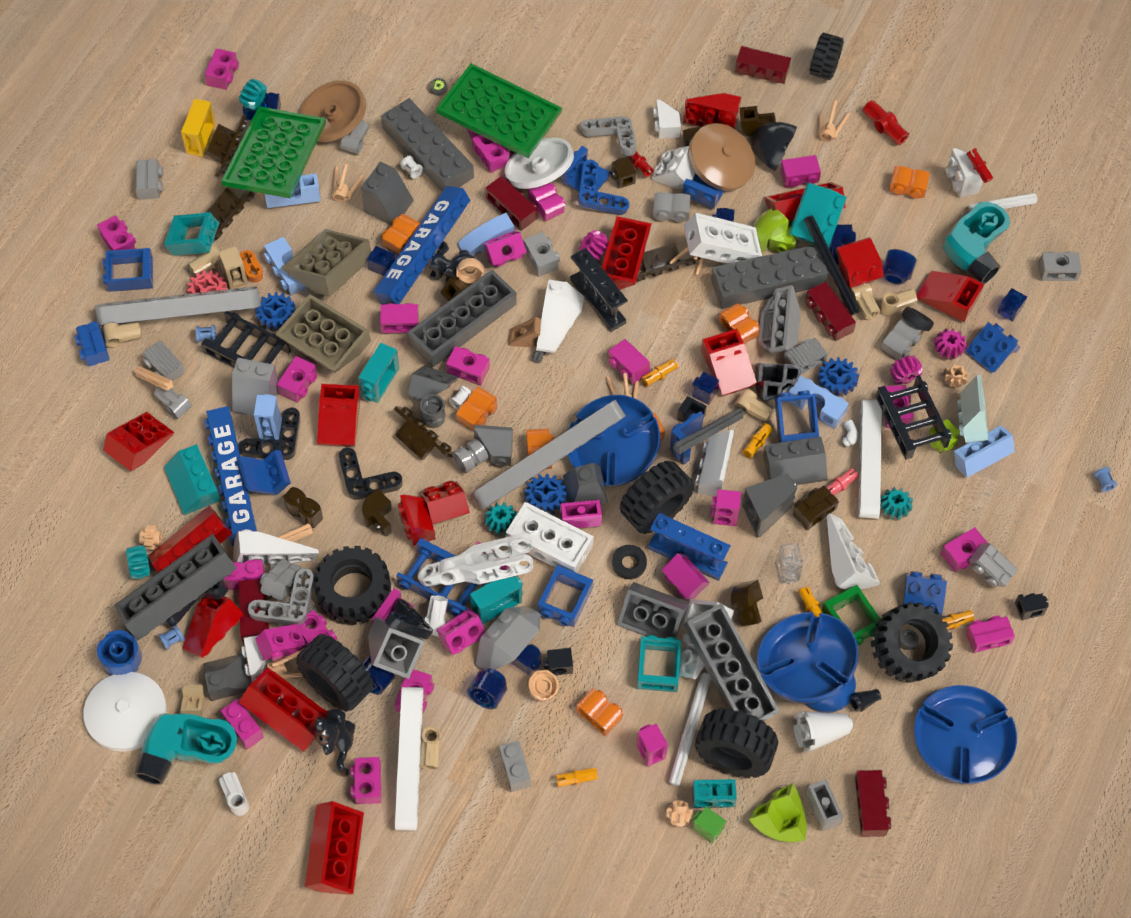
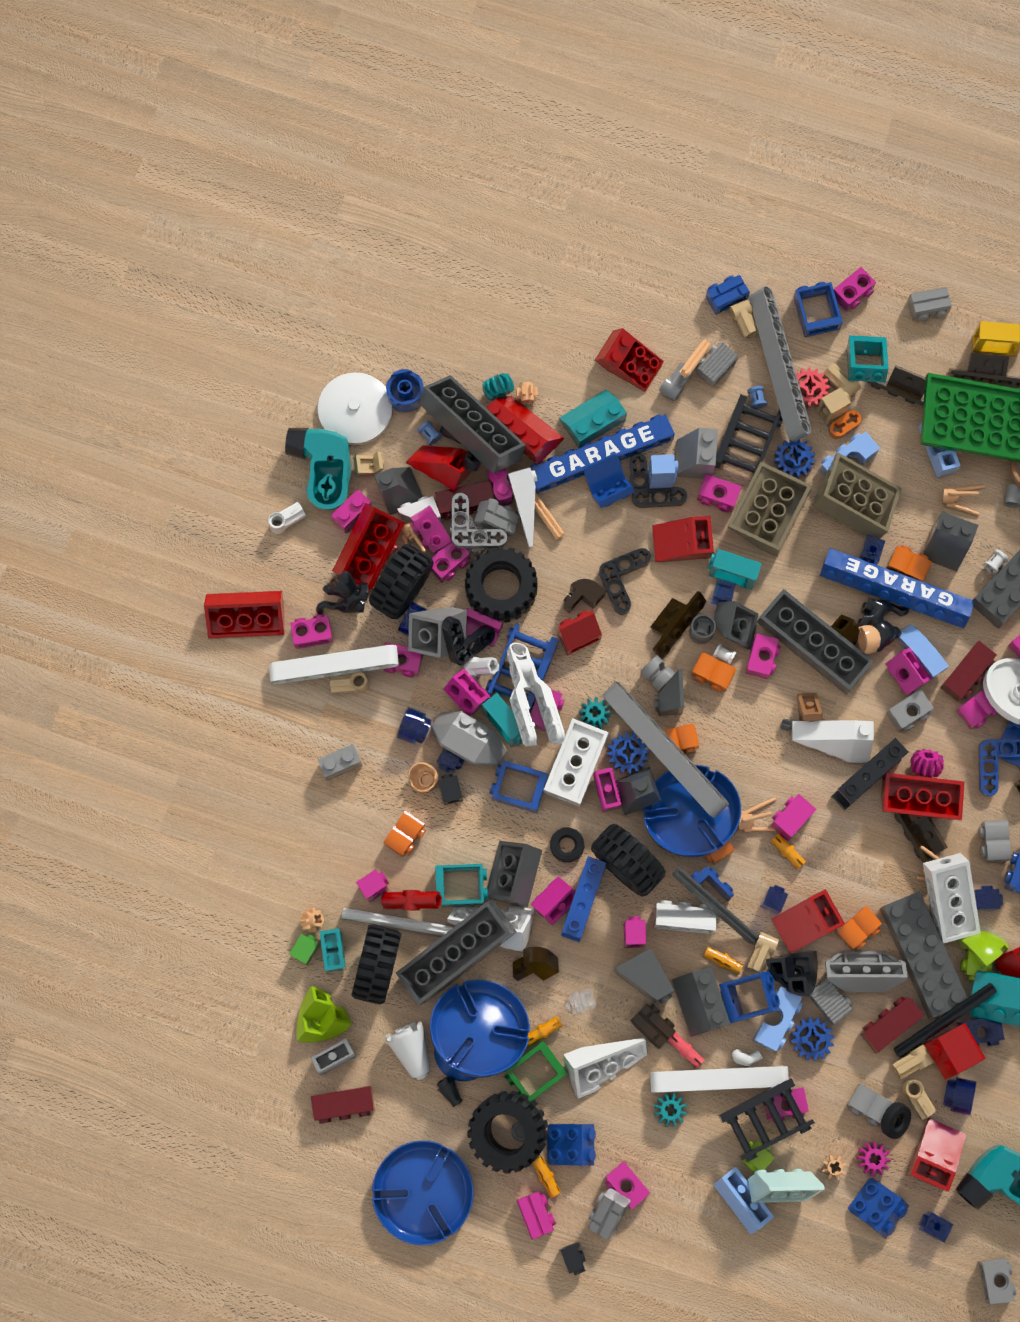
camera: 85 degrees right, 15 degrees up
(303, 507) = (581, 521): dark brown brick -> none
(398, 317) = (804, 579): dark pink brick -> none
(398, 389) = (723, 592): none -> clear blue panel
(445, 501) = (604, 656): slope -> none
(577, 777) = (337, 821): light orange axle -> none
(671, 708) = (411, 900): none -> red piece
(690, 407) = (744, 888): black panel -> none
(906, 369) = (829, 1111): dark pink gear -> none

